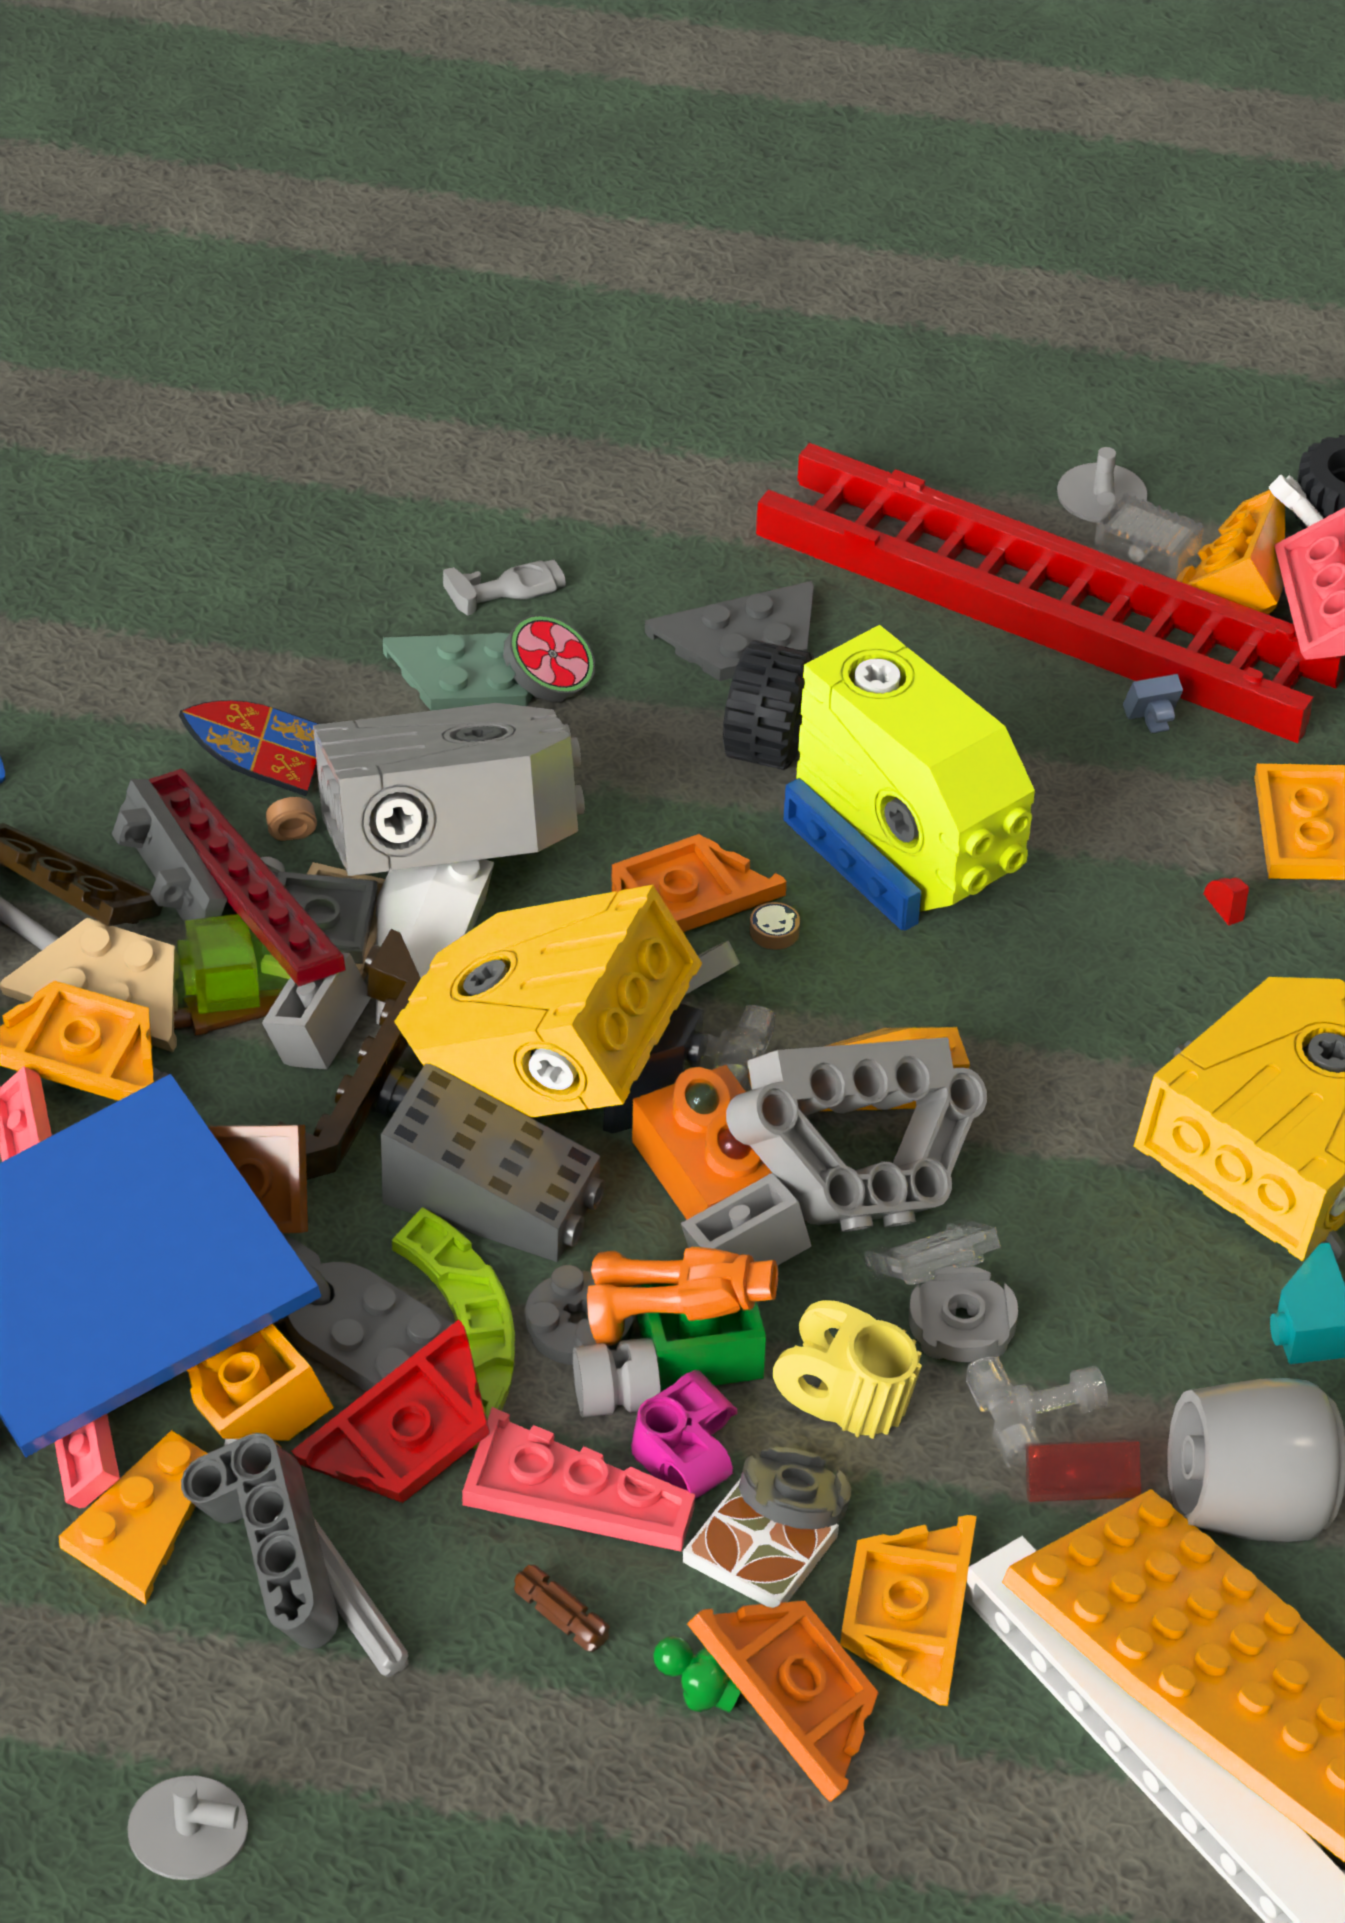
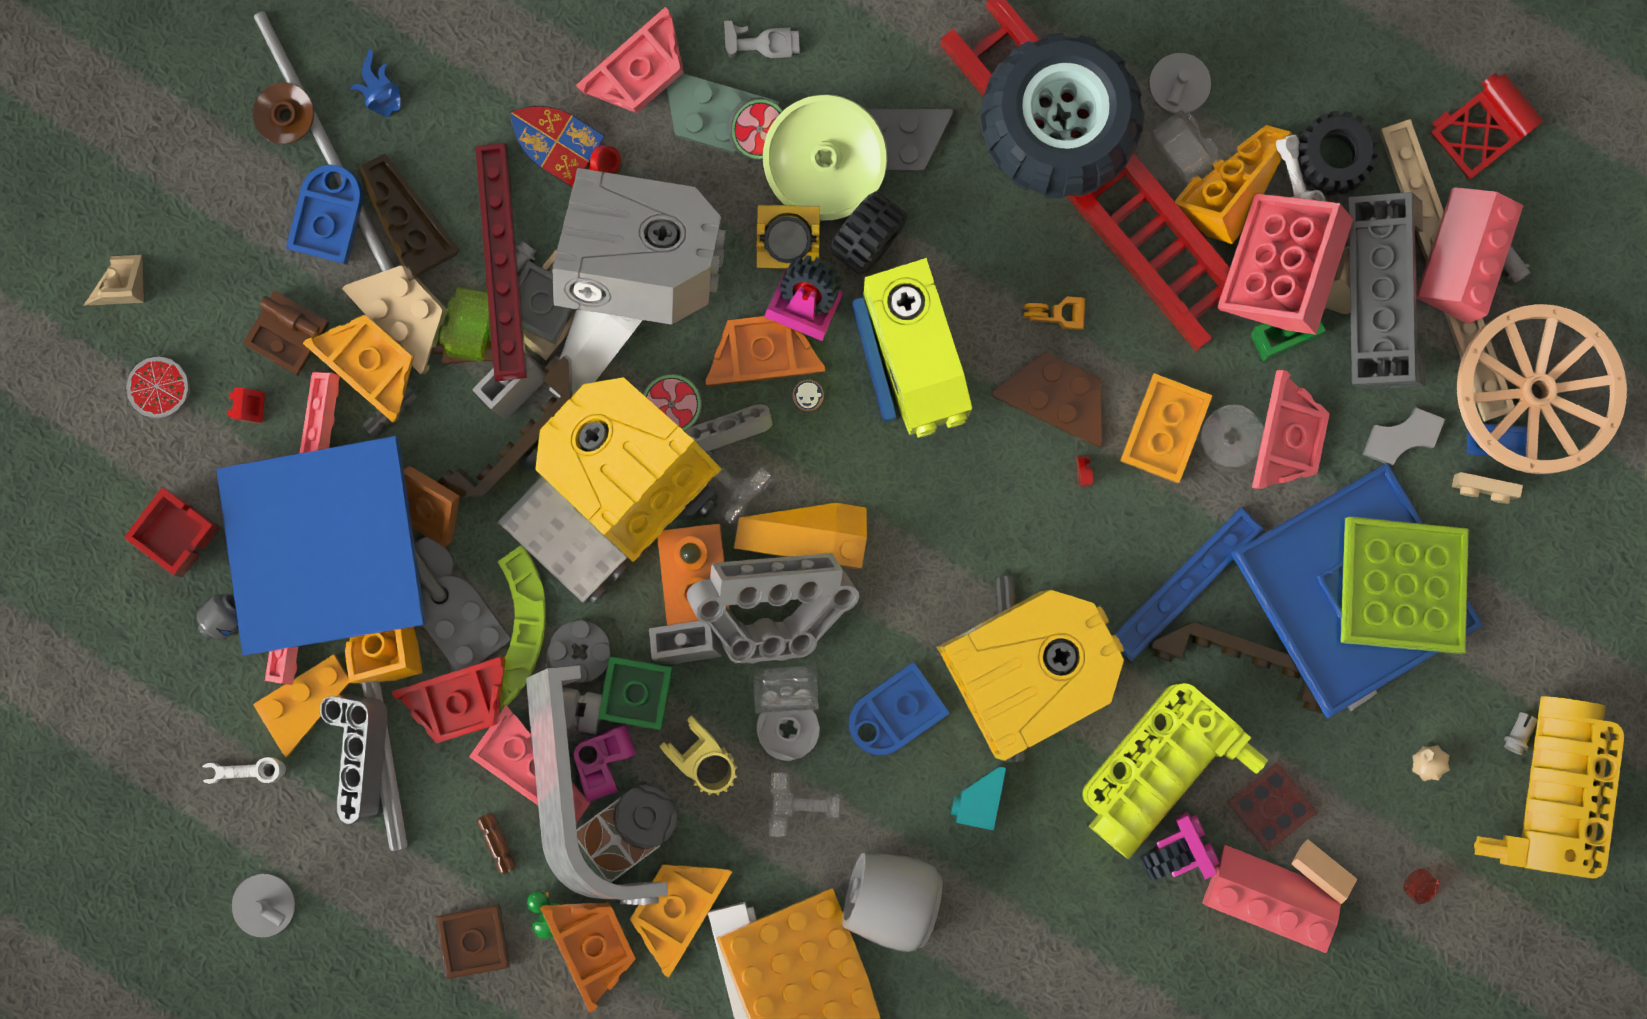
camera: 25 degrees right, 40 degrees up
(124, 1613) = (260, 770): none -> white brick
(179, 872) = (472, 249): dark grey hinge -> none
(291, 818) = (552, 212): medium nougat tile -> none
(342, 642) = (638, 67): none -> coral wing
(586, 1754) = (472, 941): none -> reddish brown plate
(651, 754) = (787, 234): none -> piece
(657, 655) = (825, 155): none -> yellowish green dish
(689, 1481) = (556, 794): none -> light grey panel
(705, 1287) = (636, 697): orange piece -> none
(717, 779) = (806, 297): none -> plate
(974, 484) = (1097, 84): none -> black wheel
(1052, 748) = (1078, 312): none -> light orange piece
(1083, 1470) = (803, 861): clear red plate -> none
(1121, 1245) = (898, 710): none -> blue tile
(1137, 833) = (1057, 396): none -> reddish brown wing
(1154, 701) = (1117, 294): sand blue tile -> none

